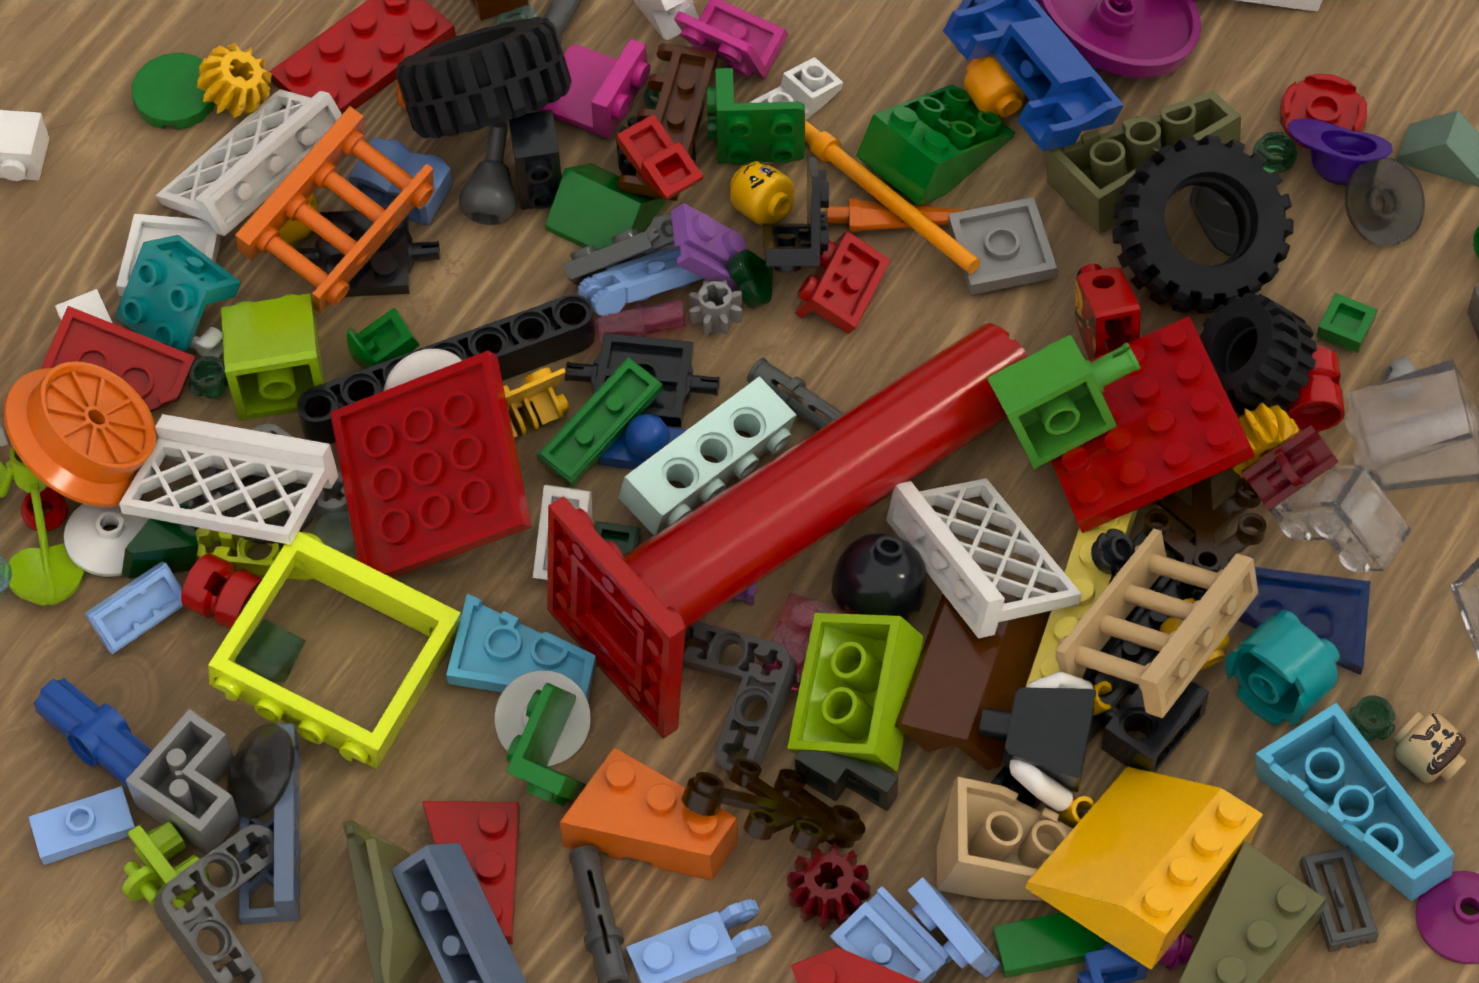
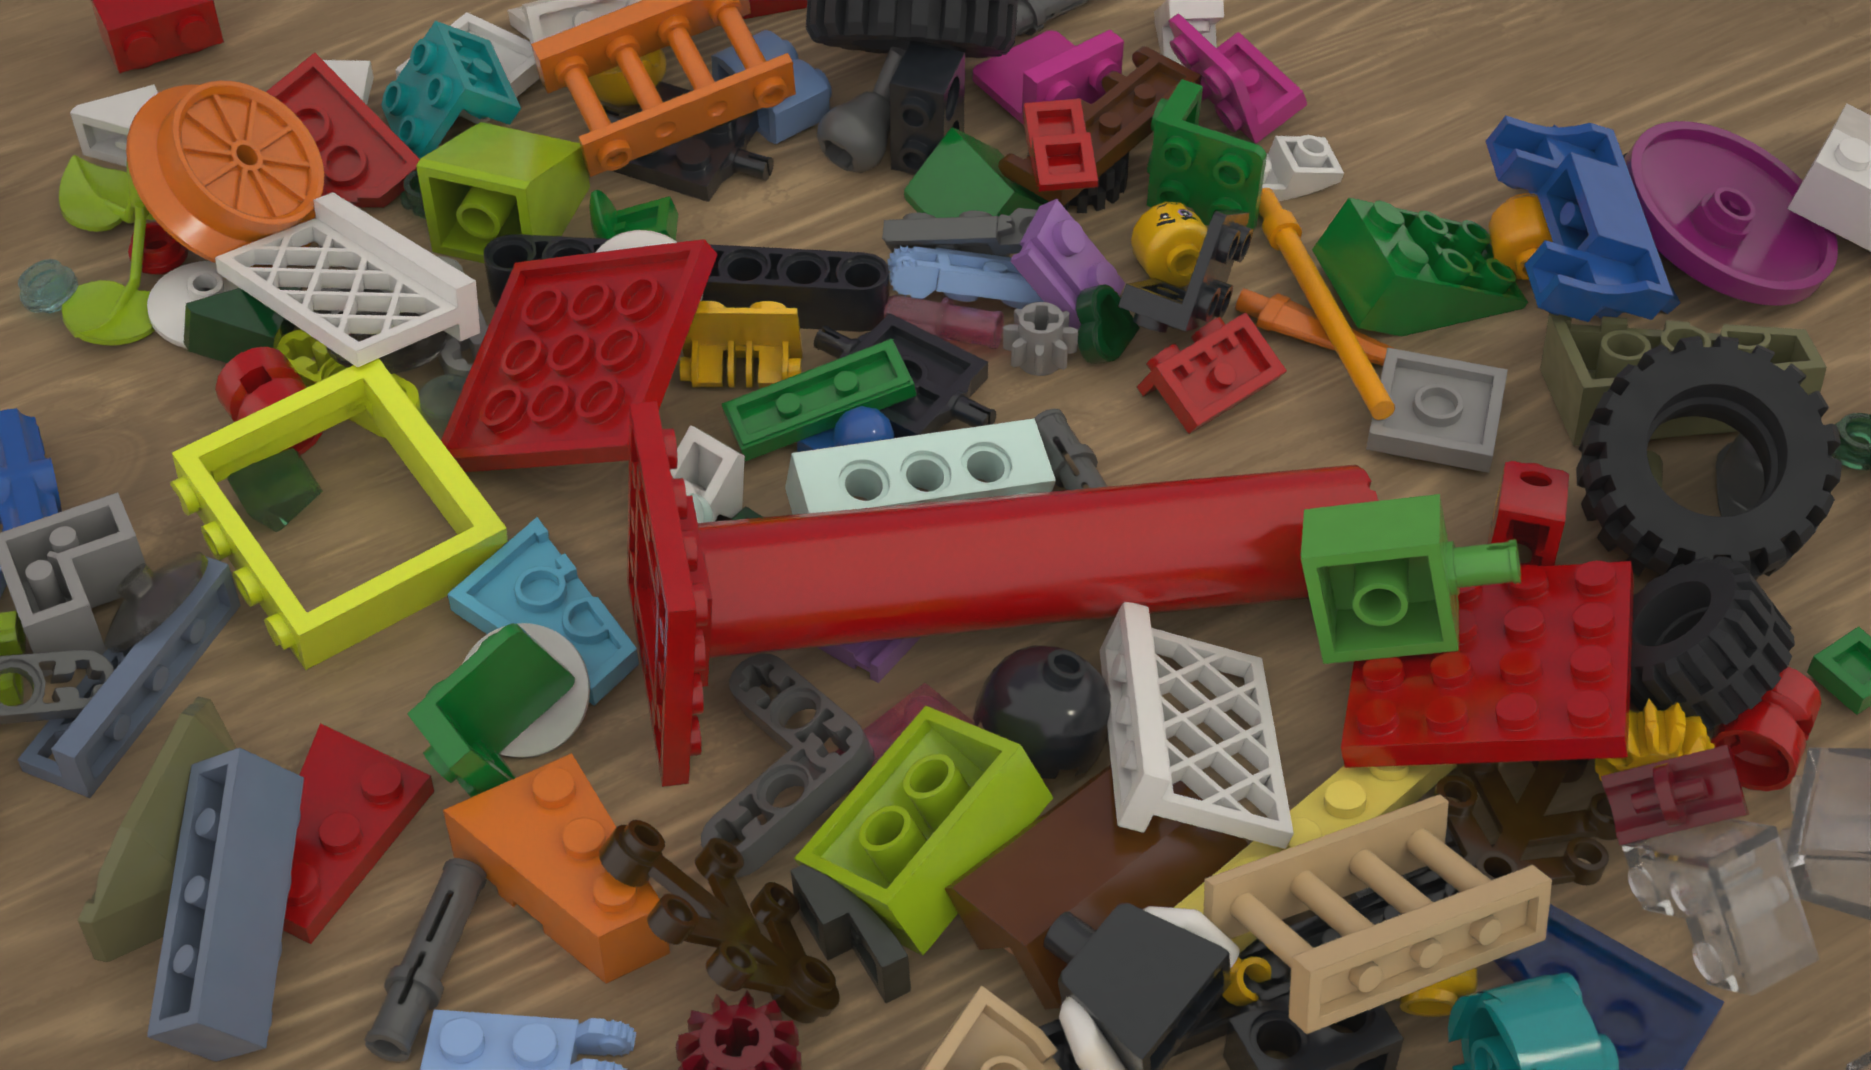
camera: 25 degrees right, 10 degrees down
(136, 607) = (164, 380): light blue plate -> none
(1112, 551) = (1354, 797): black plate -> none

